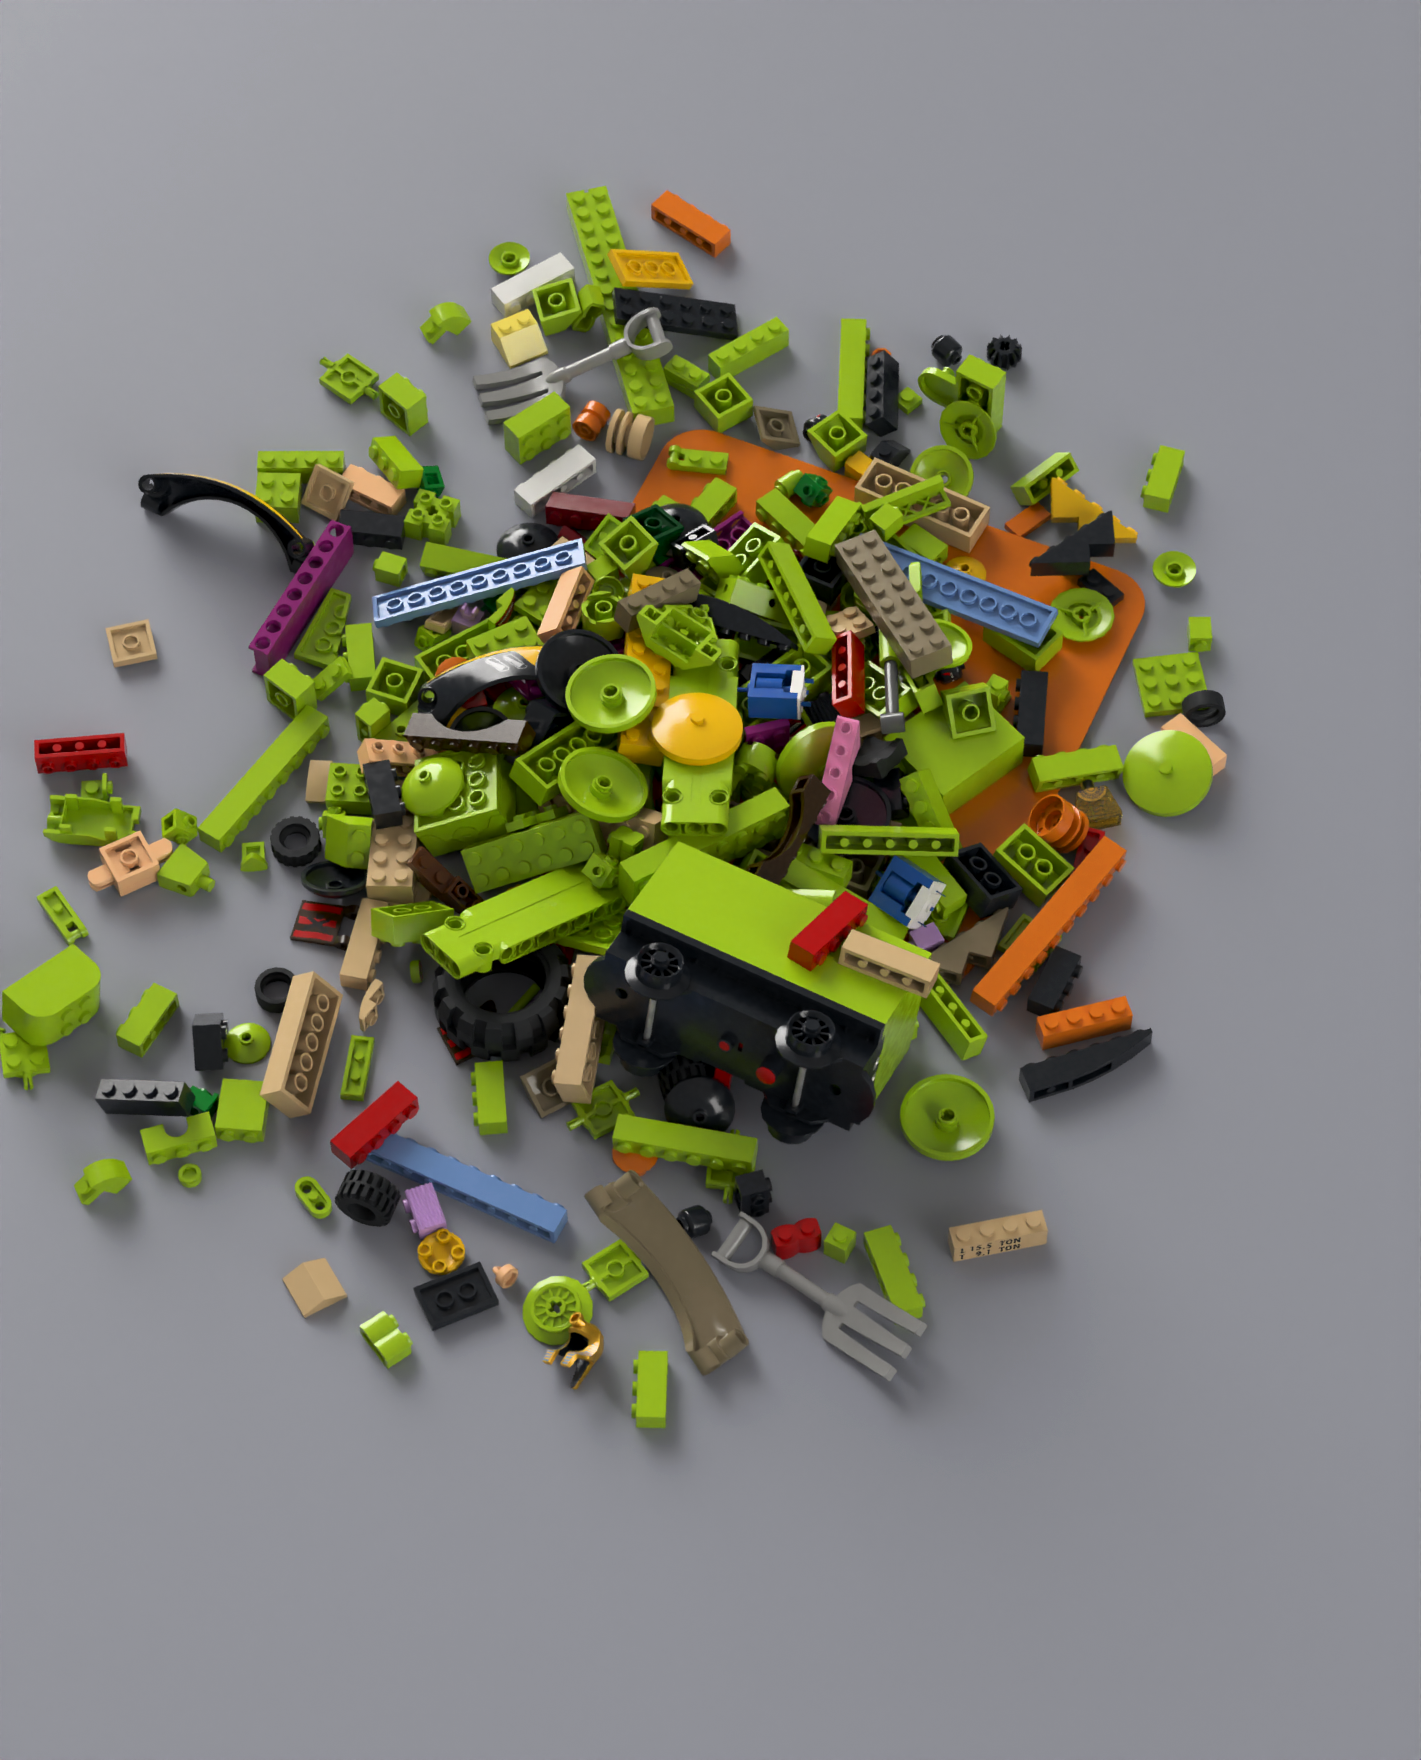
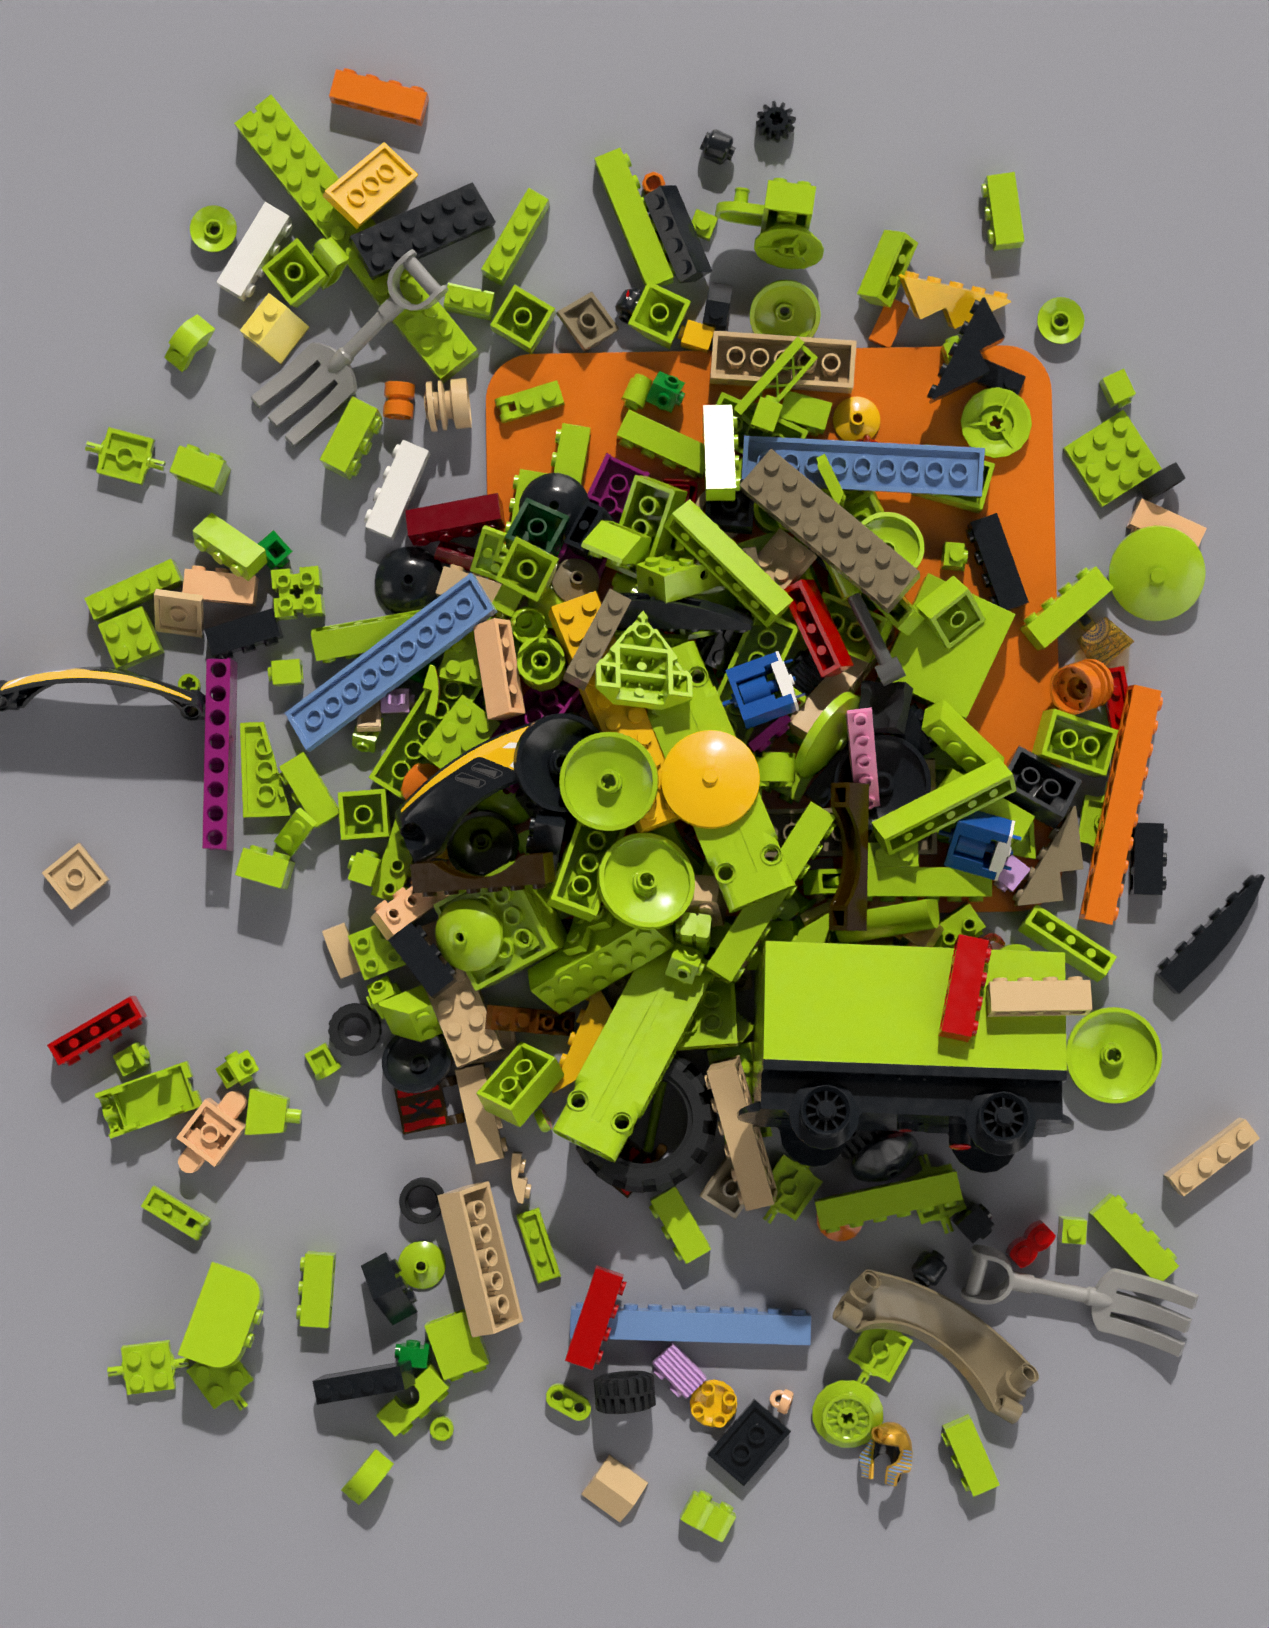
camera: 20 degrees left, 30 degrees up
(264, 779) = (288, 973): lime brick -> none
(1083, 1023) = (1194, 891): orange brick -> none

